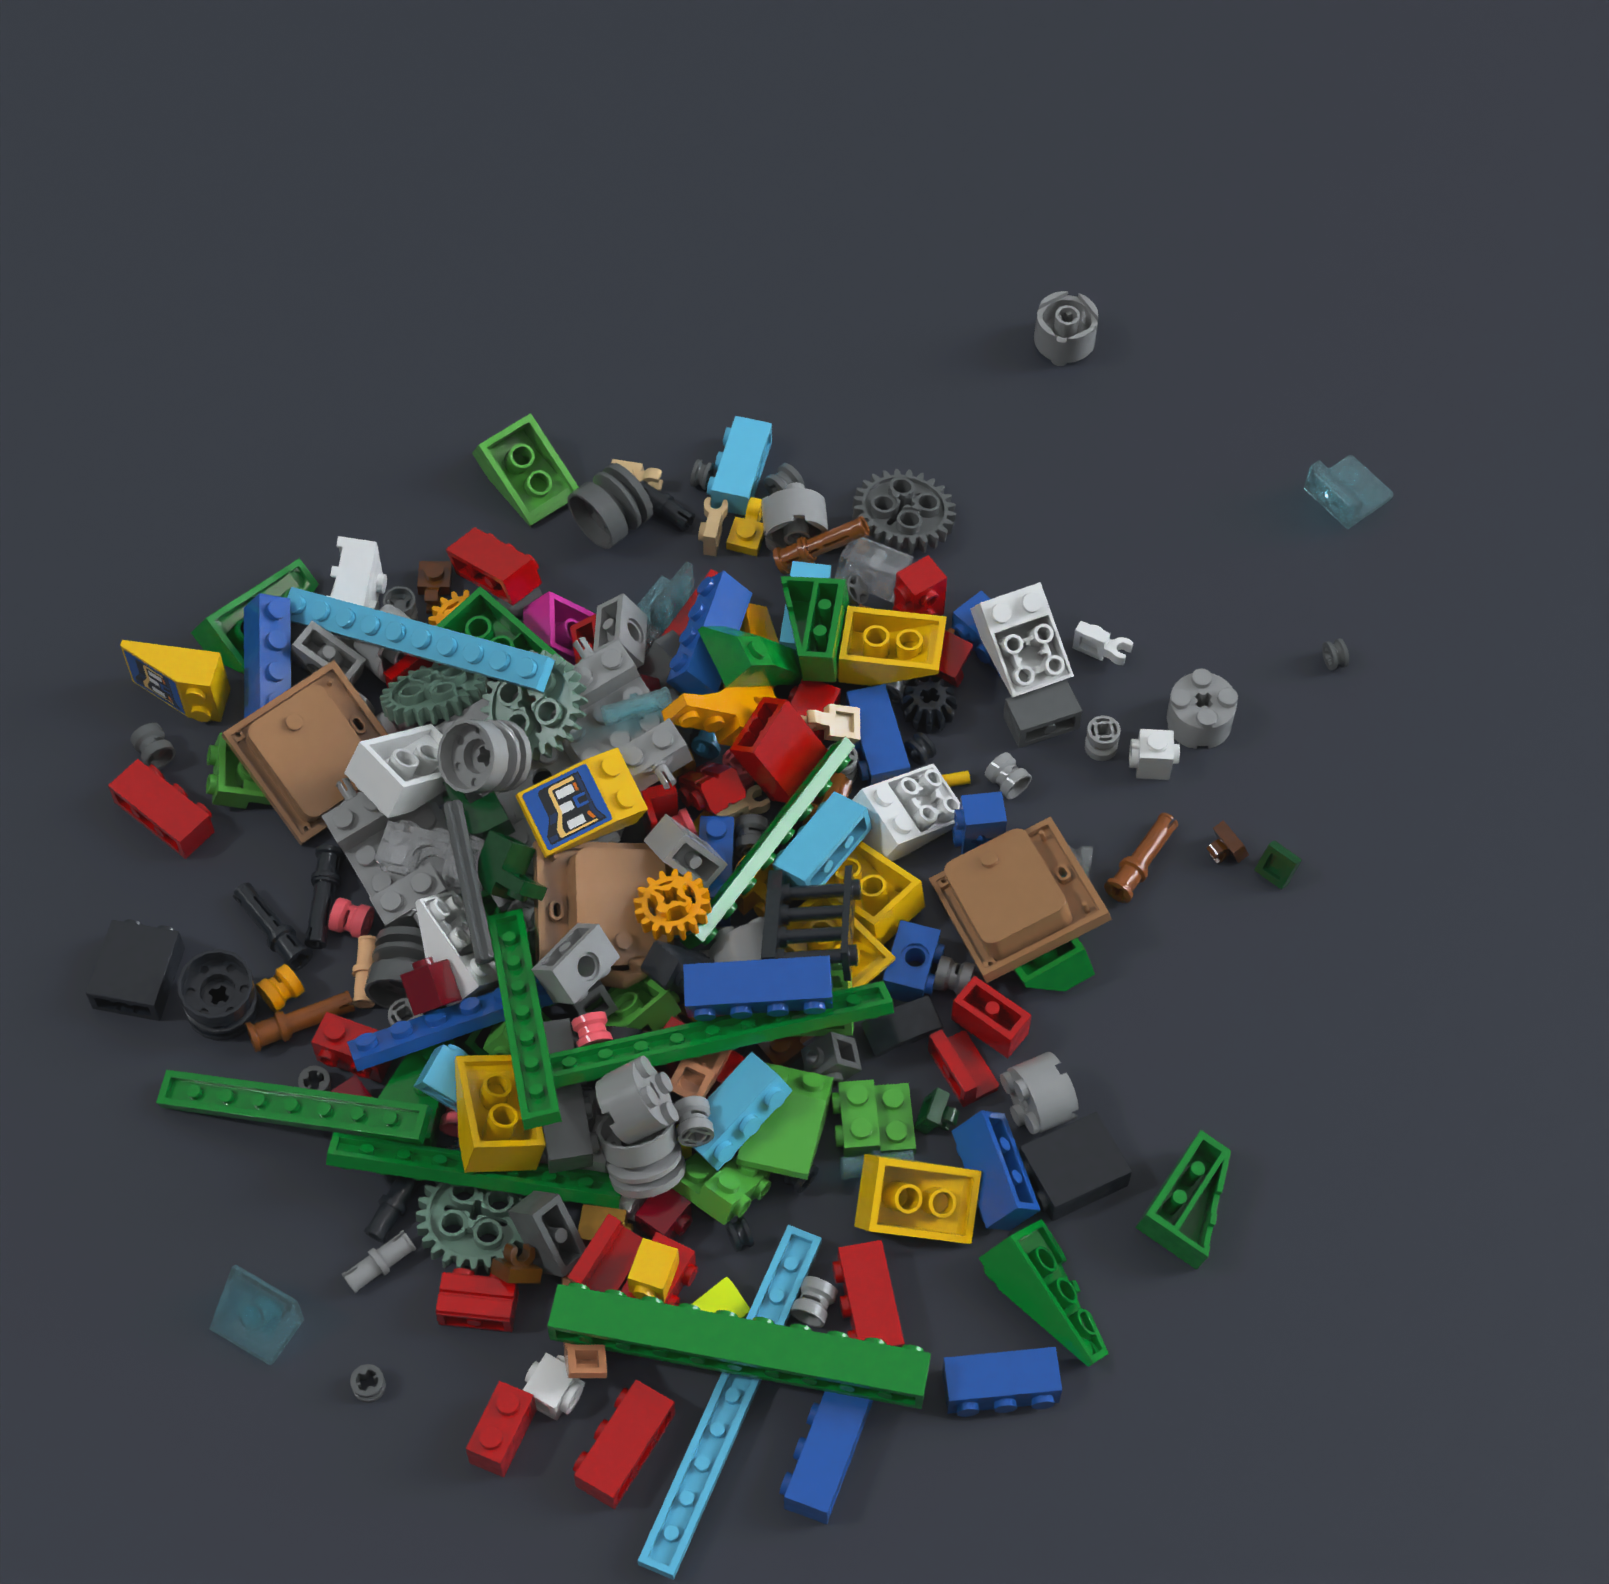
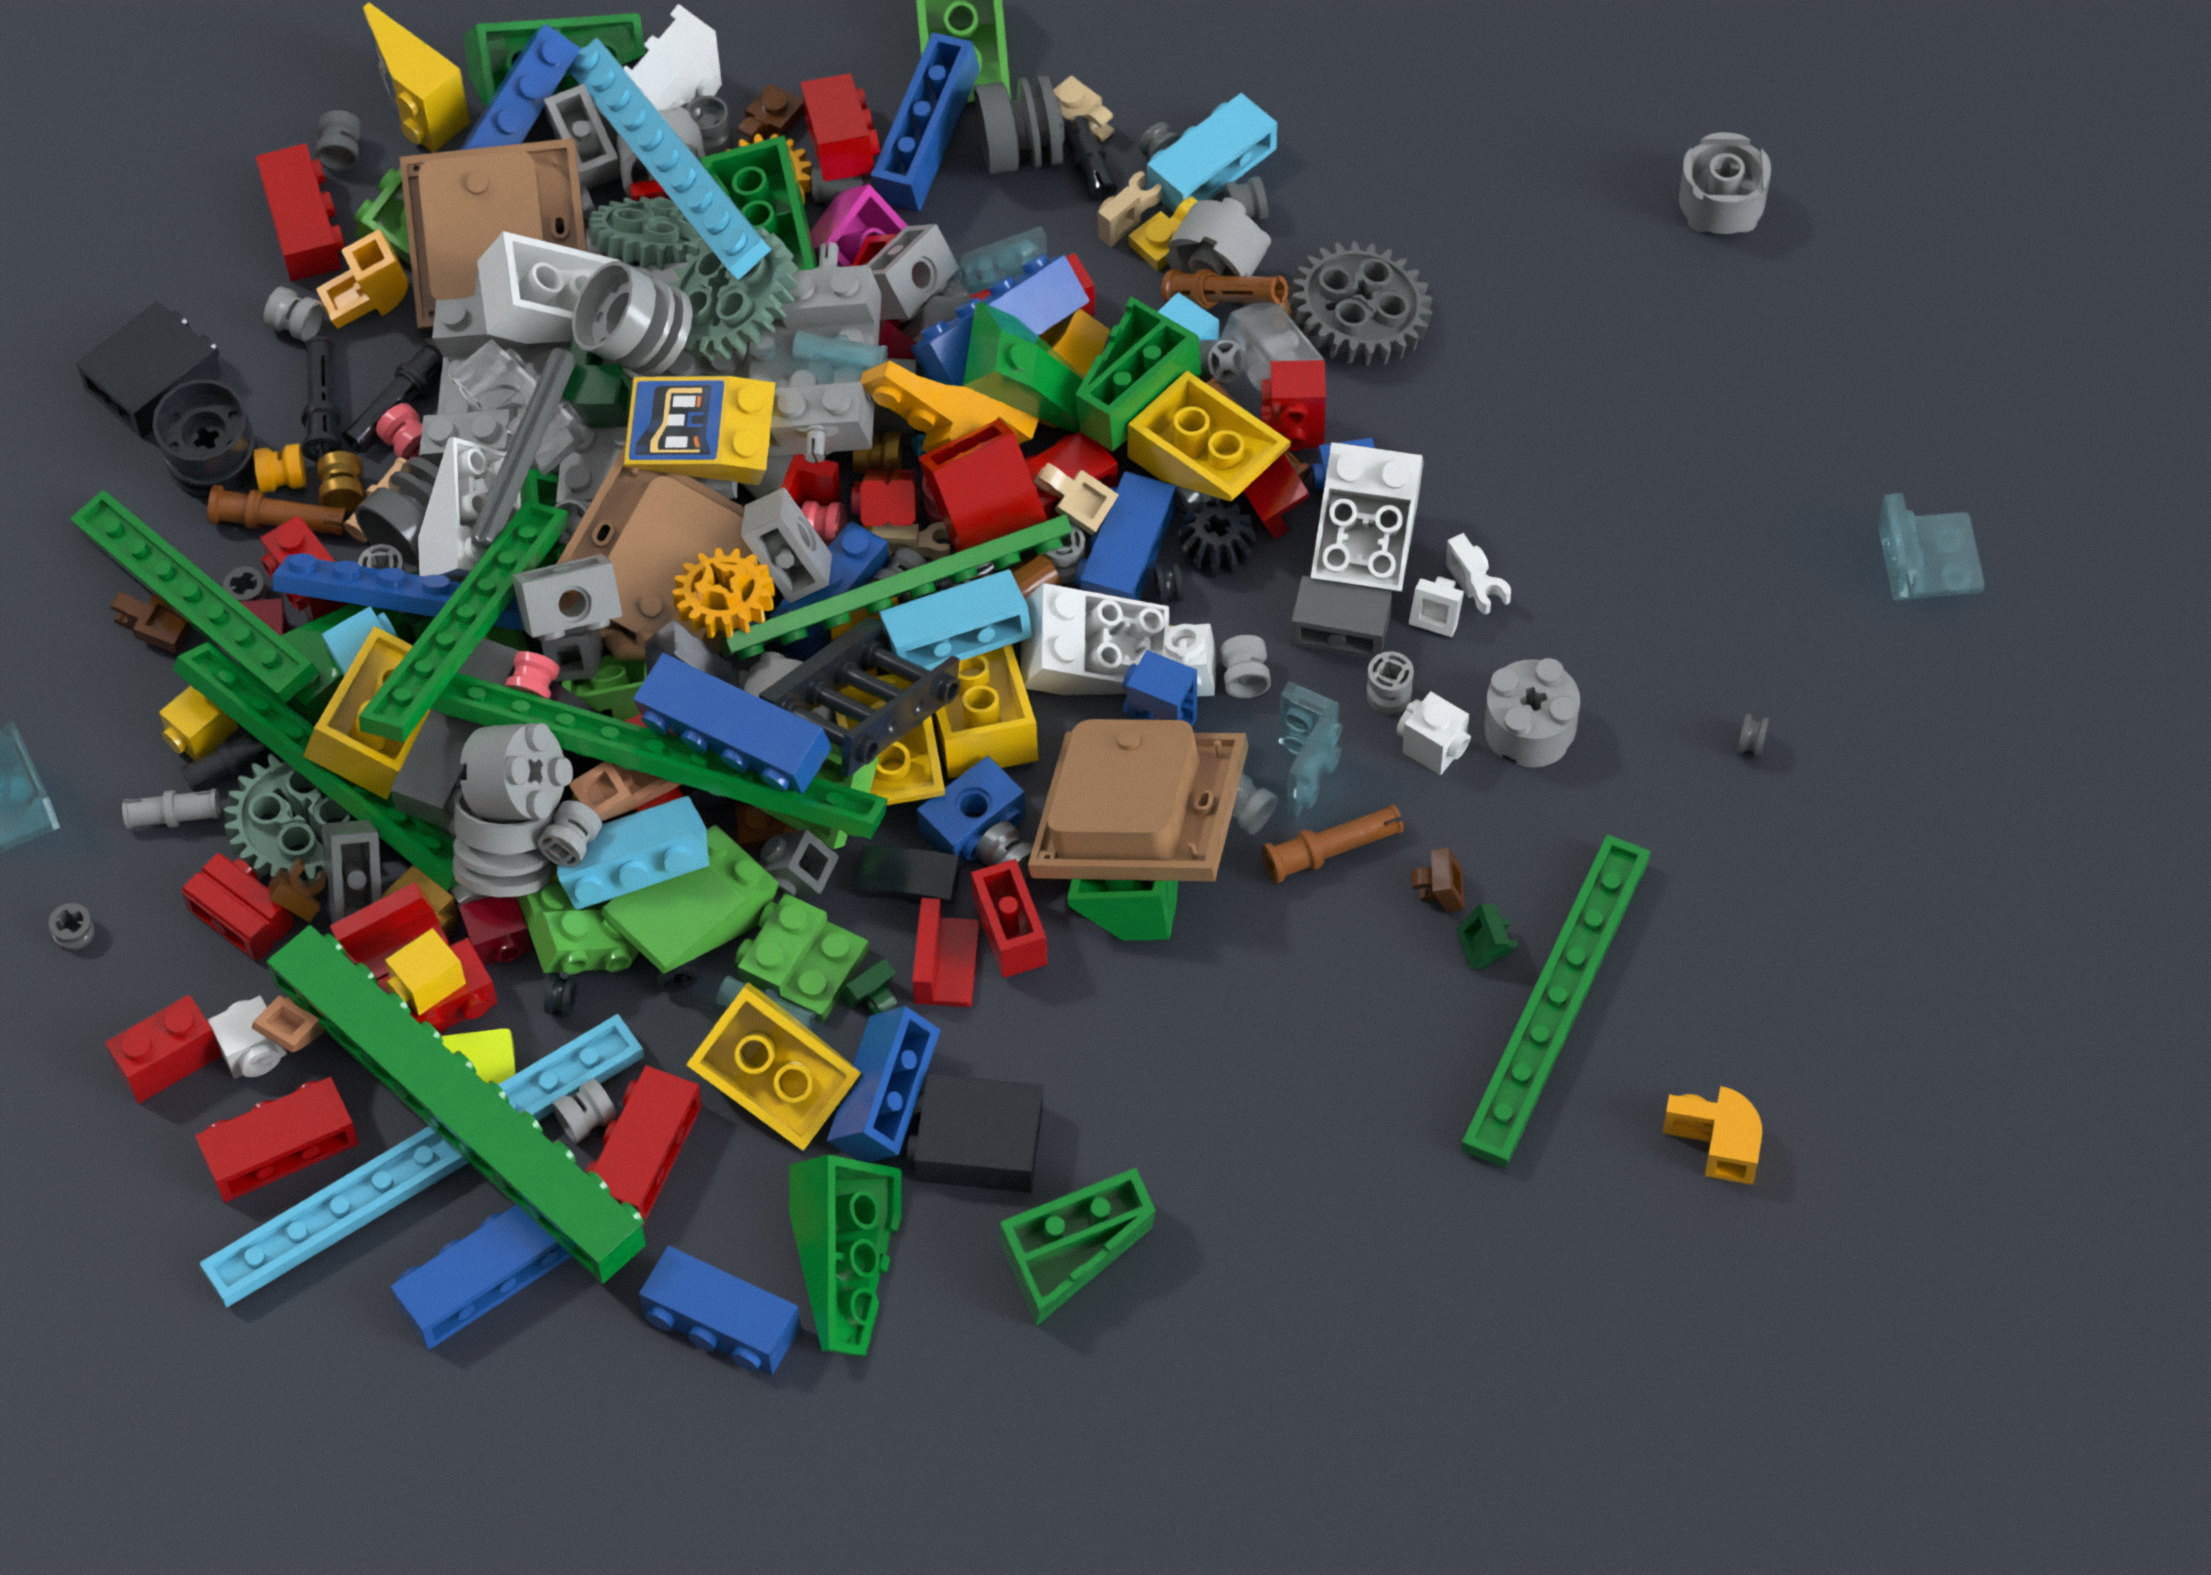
camera: 35 degrees right, 0 degrees up
(203, 875) = (290, 313): none -> light grey wheel
(252, 828) = (371, 283): none -> light orange brick
(271, 1139) = (151, 622): none -> reddish brown plate
(328, 973) = (340, 478): none -> pearl gold wheel
(352, 1194) = (195, 724): none -> yellow brick
(430, 985) = (408, 539): dark red brick -> none
(504, 866) = (575, 454): dark green brick -> none
(549, 532) = (925, 121): none -> blue brick
(970, 780) = (1195, 648): none -> white brick
(1040, 1093) = (995, 1030): light grey brick -> none
(1088, 790) = (1311, 731): none -> clear light blue bracket
(1094, 675) = (1436, 606): none -> white tile
(1349, 882) = (1555, 1001): none -> green plate
(1509, 901) = (1728, 1125): none -> light orange brick

